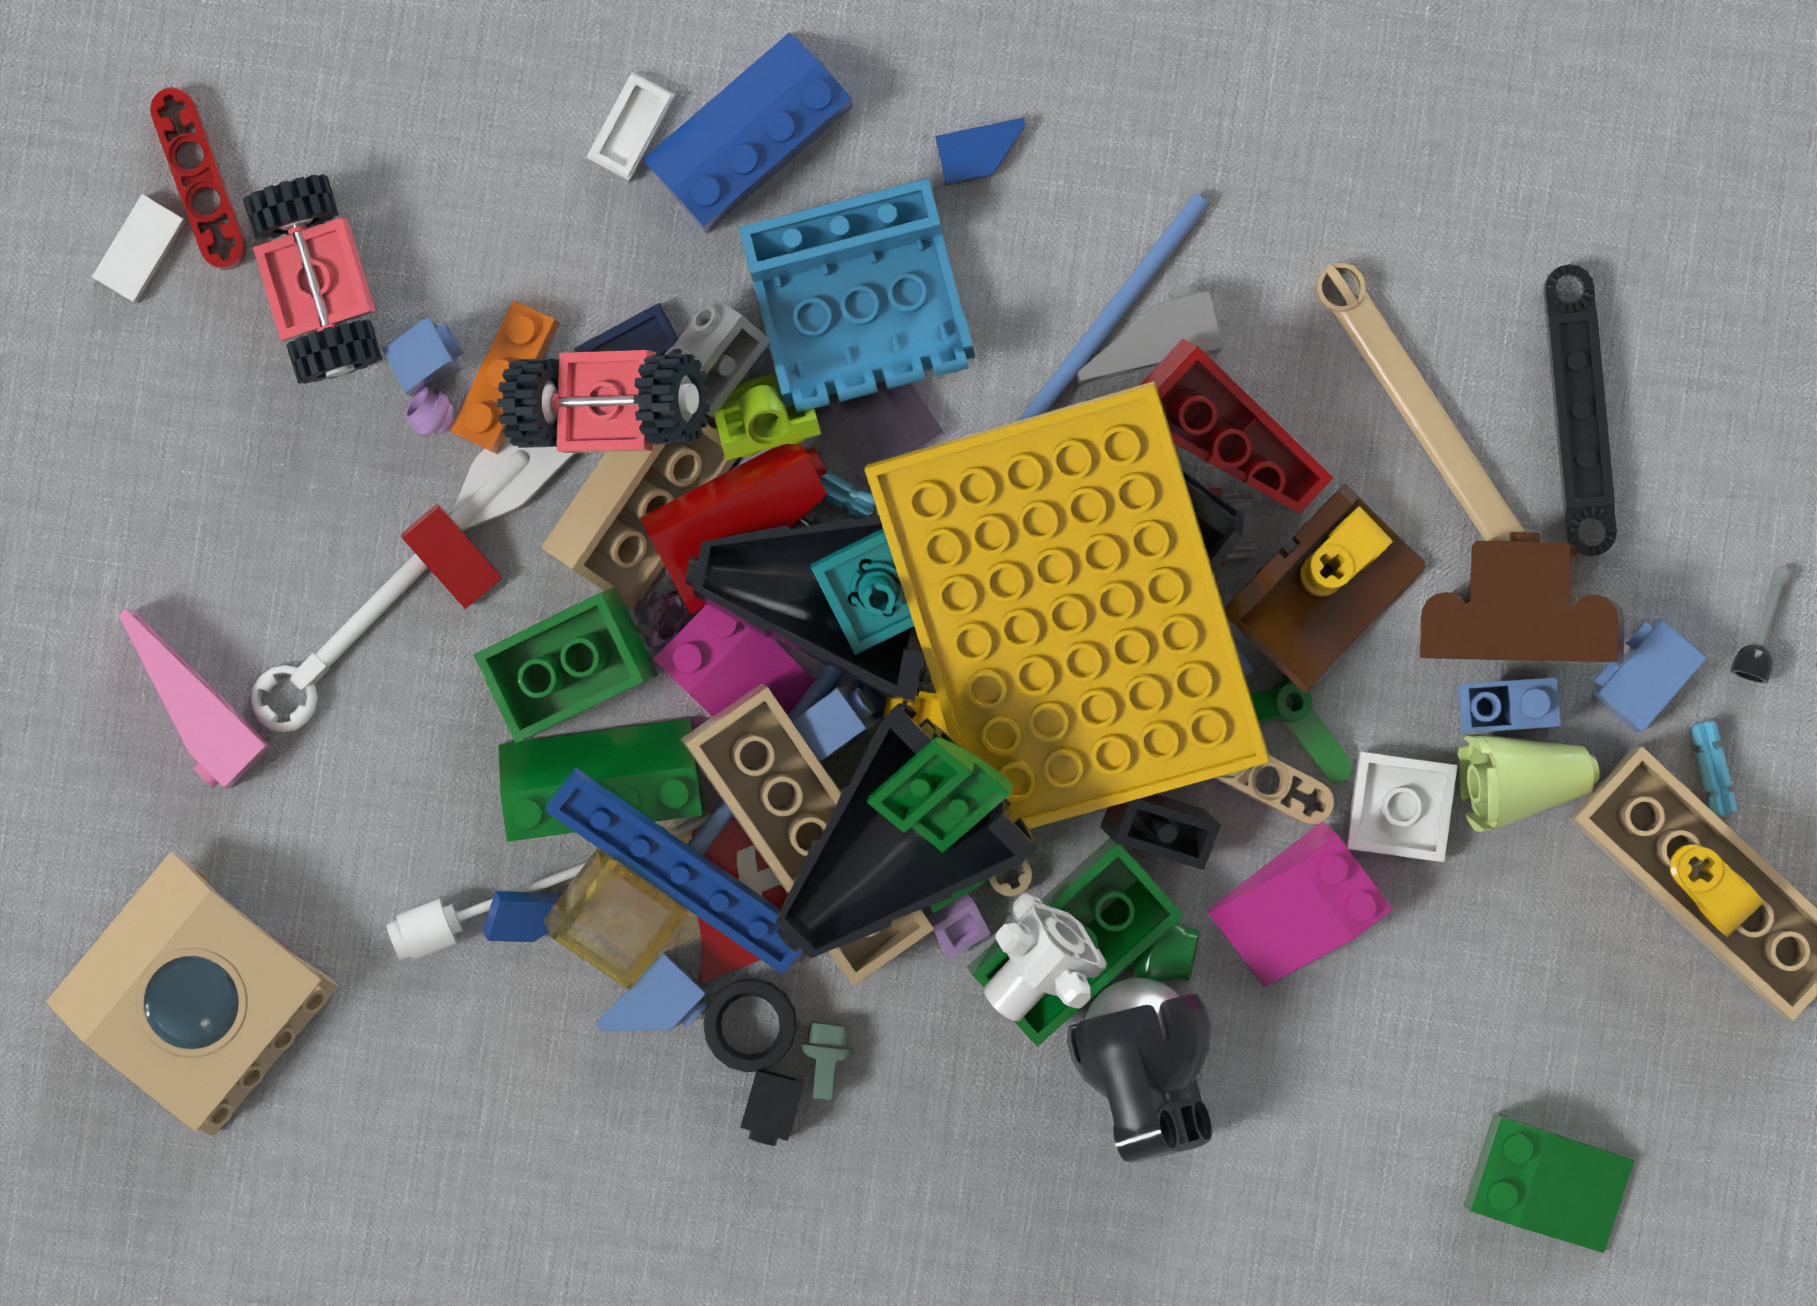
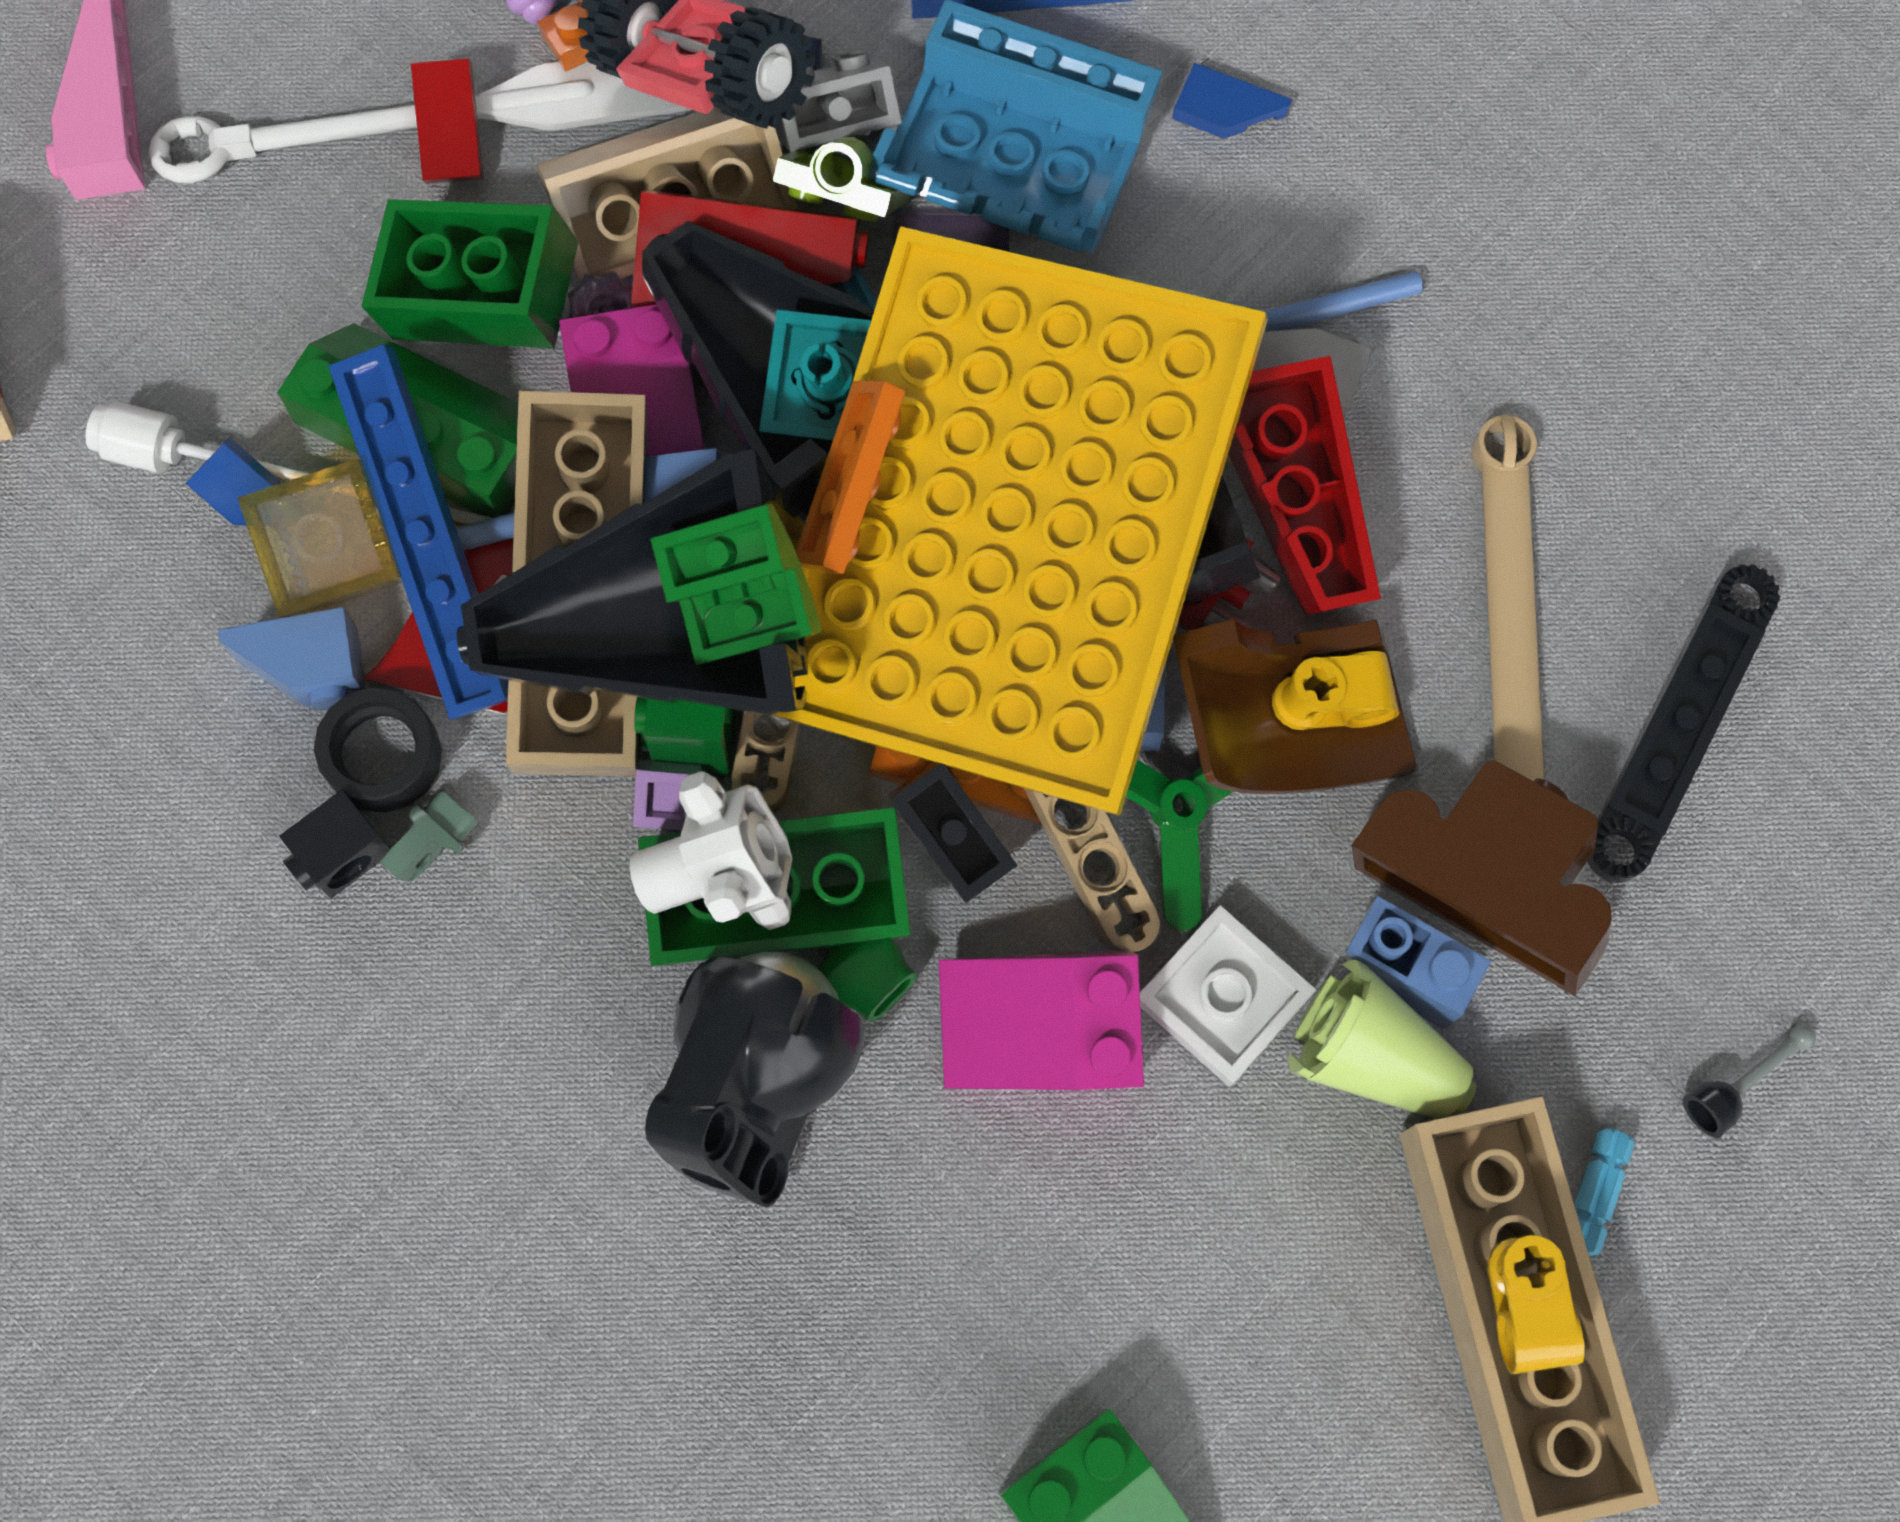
camera: 25 degrees right, 15 degrees down
(951, 662) = (850, 476): none -> orange plate
(1650, 674) = (1589, 1036): medium blue brick -> none

